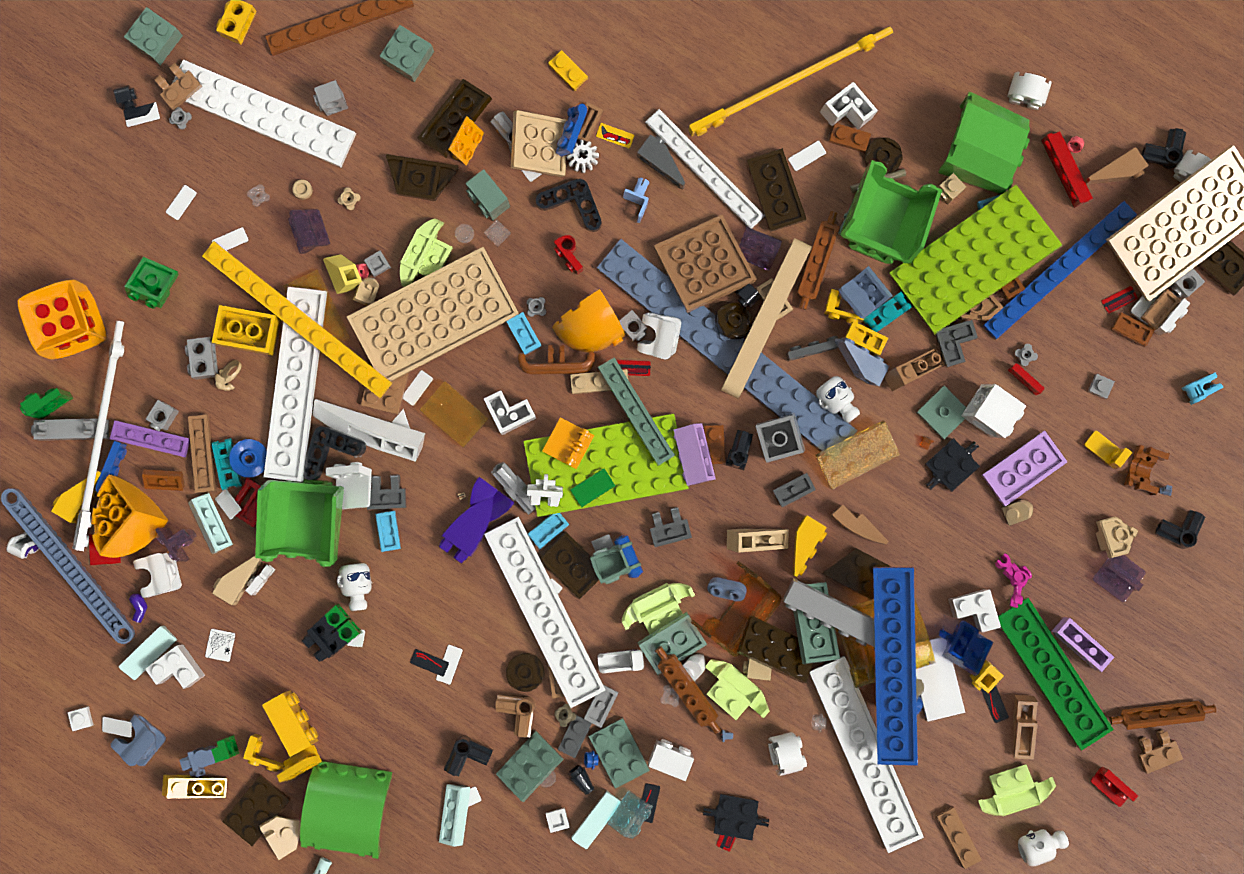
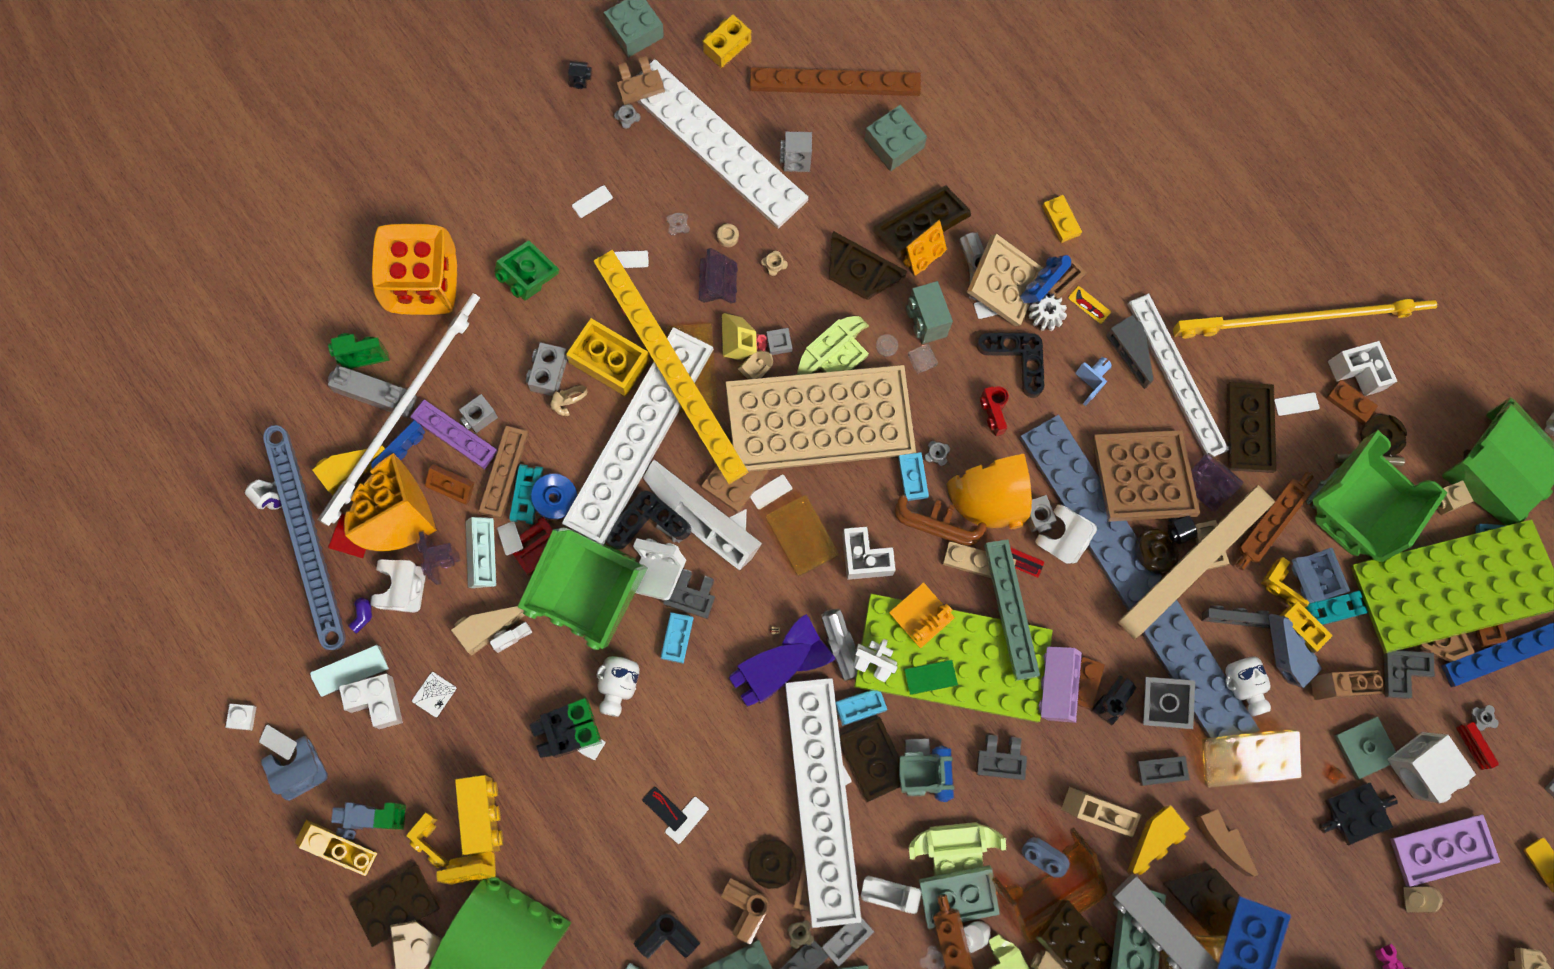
camera: 15 degrees right, 10 degrees down
(141, 114) = (587, 98): sticker -> none

